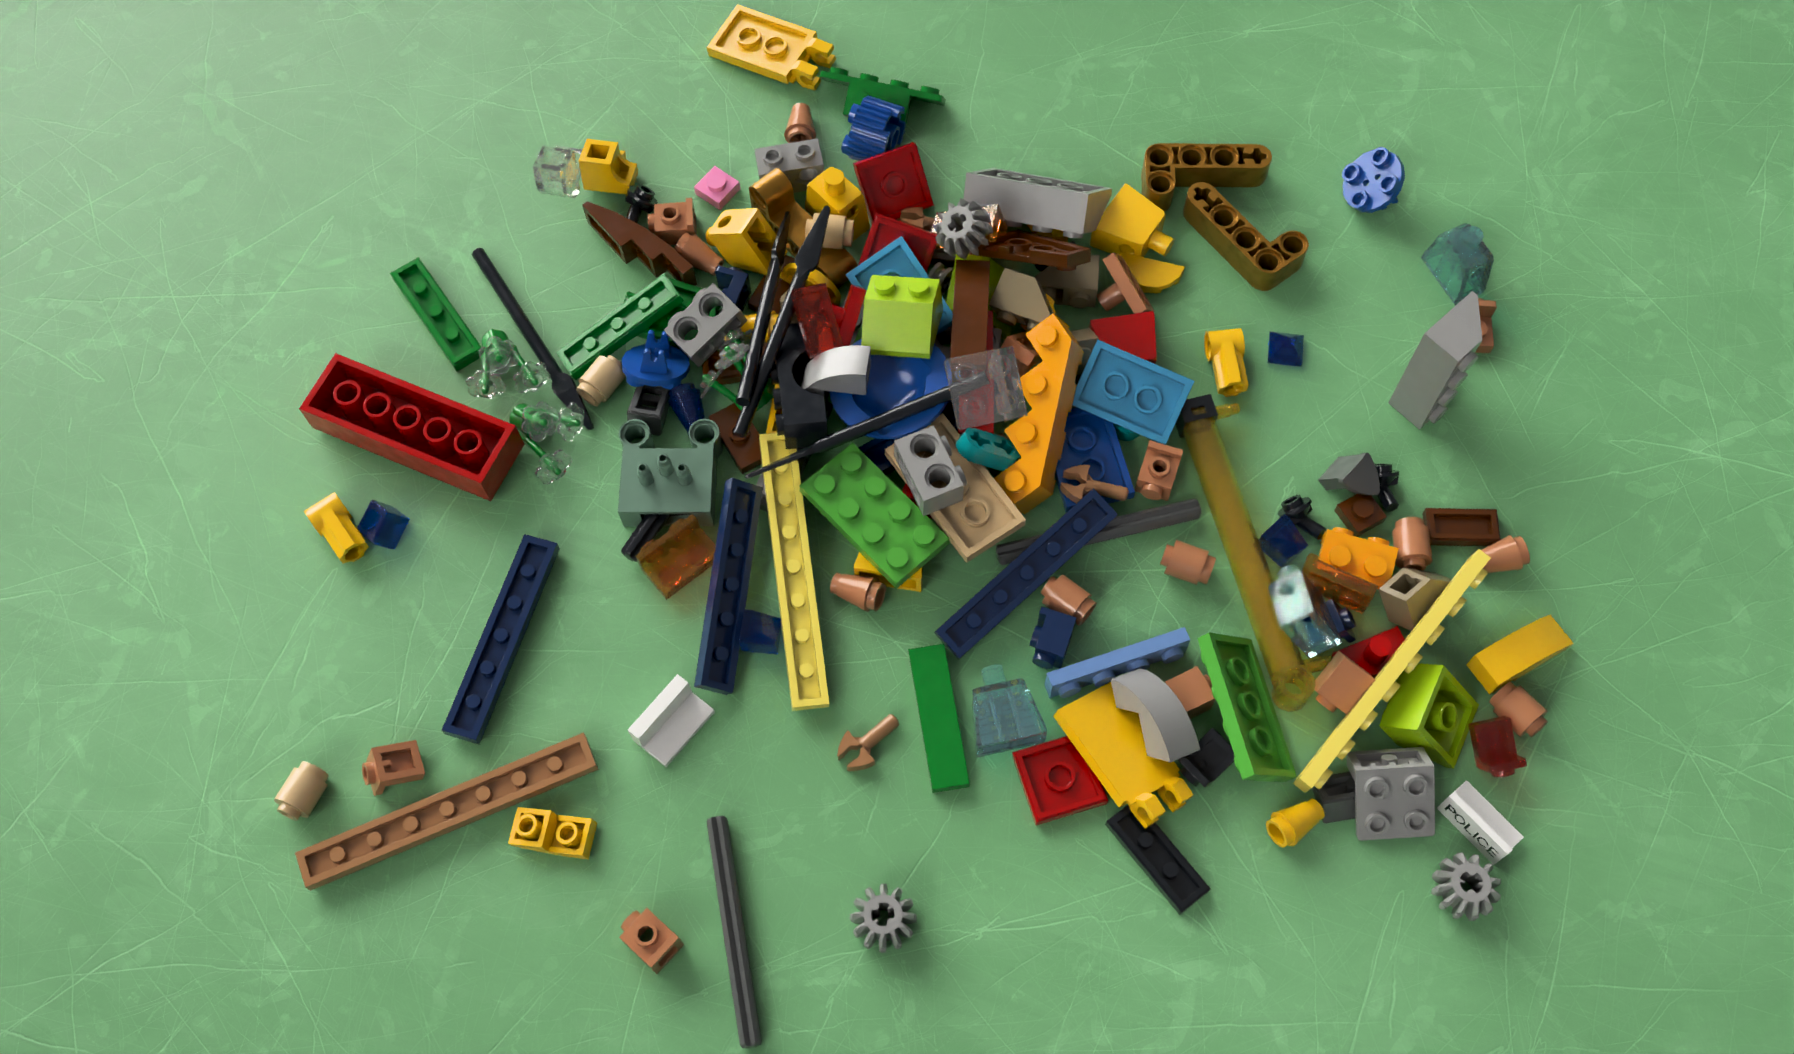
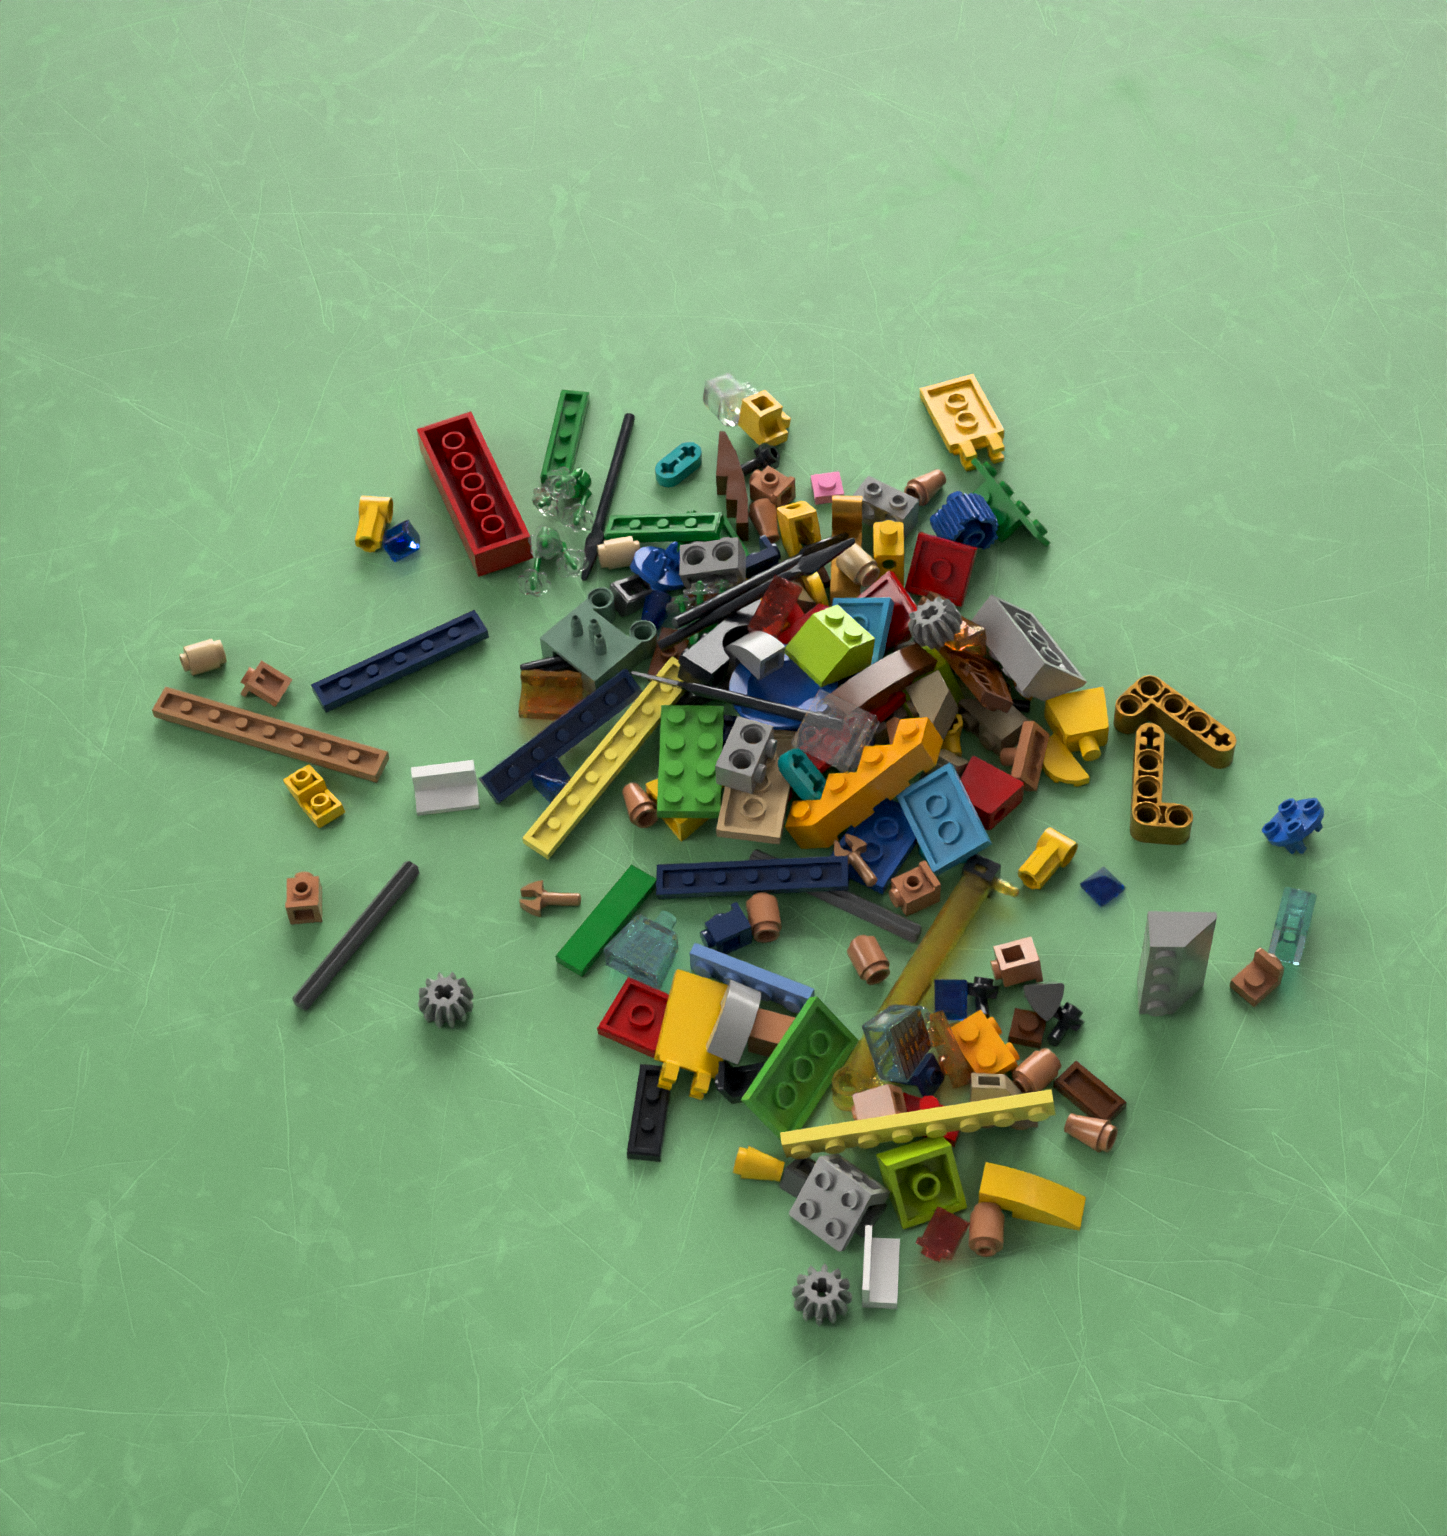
camera: 45 degrees right, 10 degrees down
(560, 262) = (678, 464): none -> teal beam
(1301, 456) = (1016, 962): none -> nougat brick

